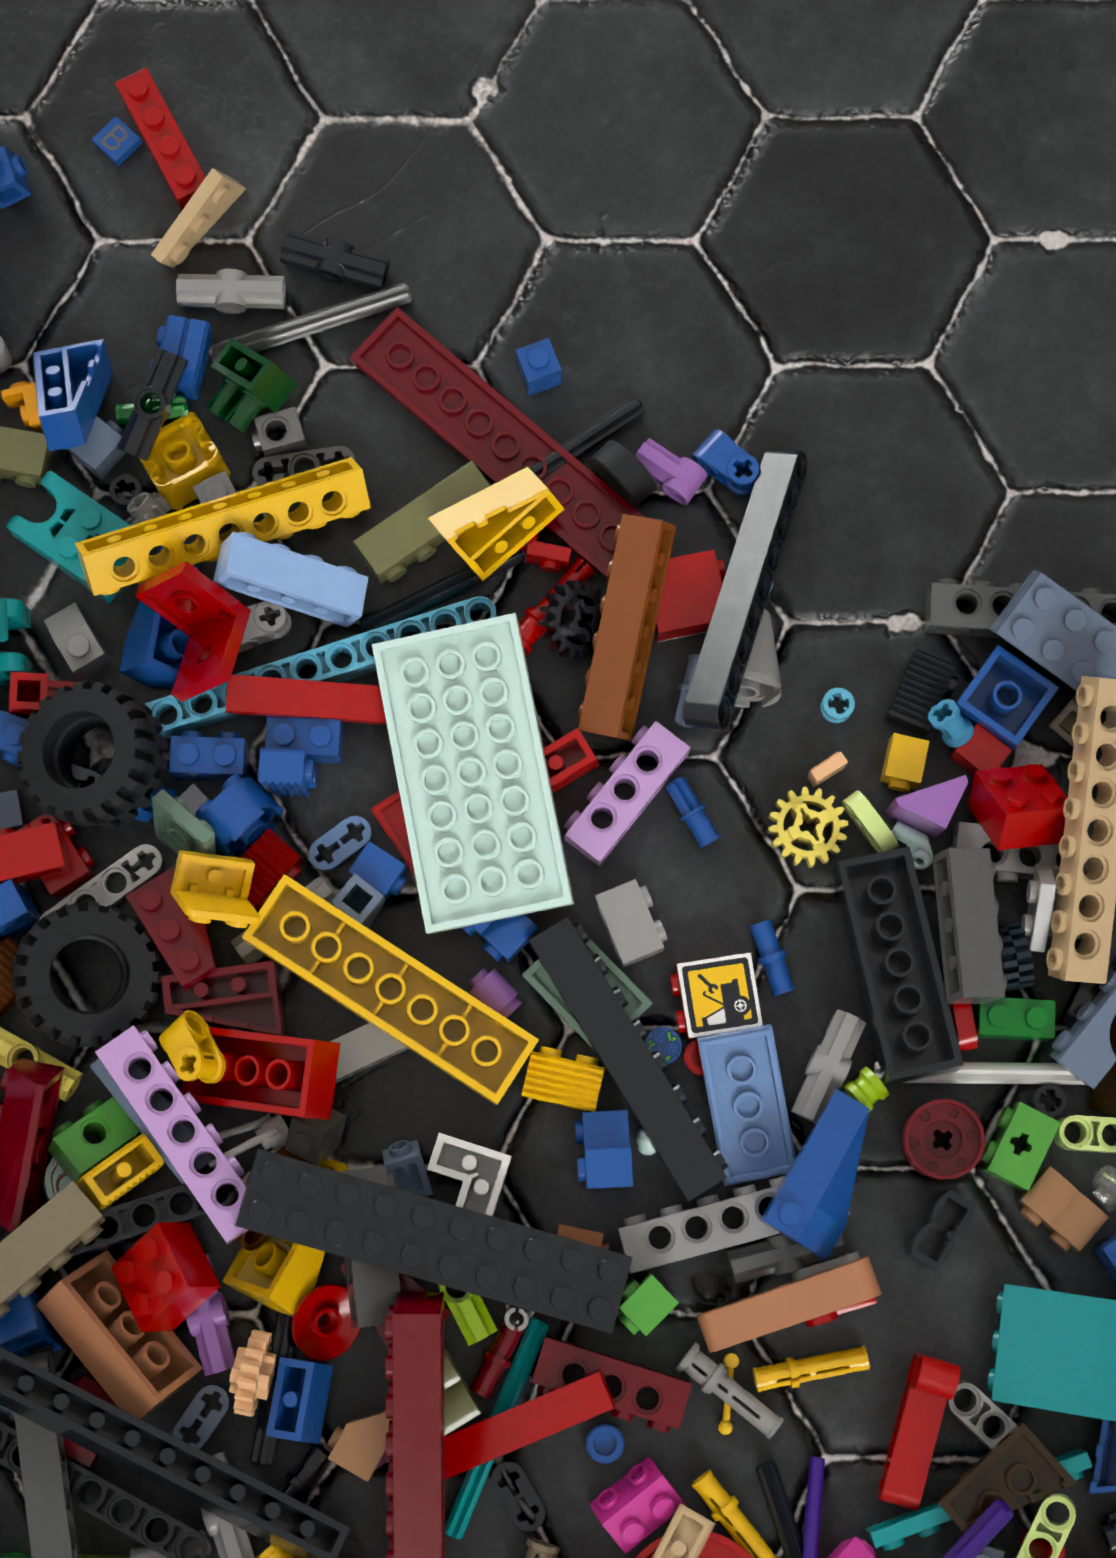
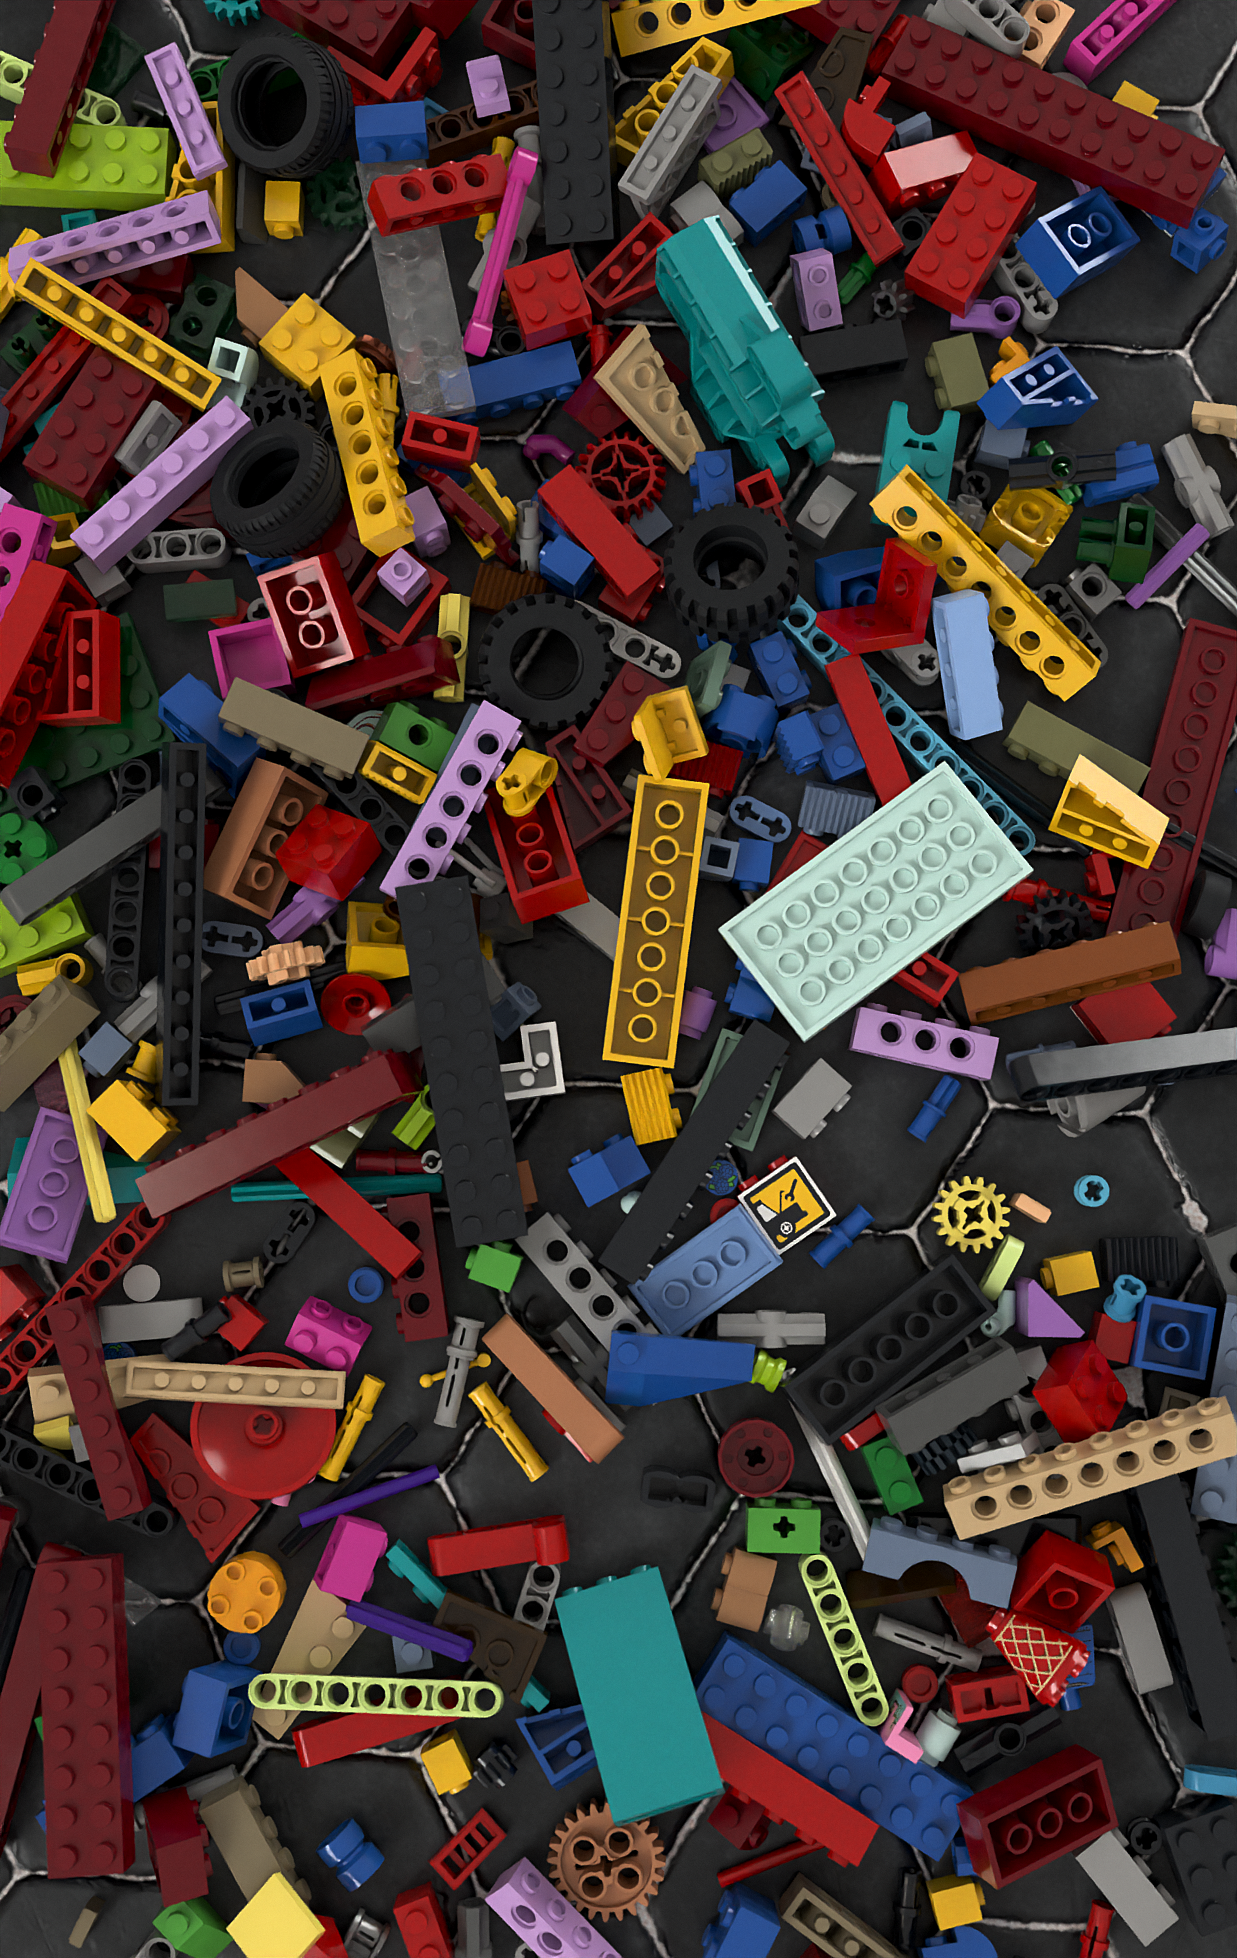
camera: 60 degrees right, 5 degrees up
(291, 353) = (1167, 565): none -> medium lavender axle
(364, 769) = (833, 808): none -> sand blue brick

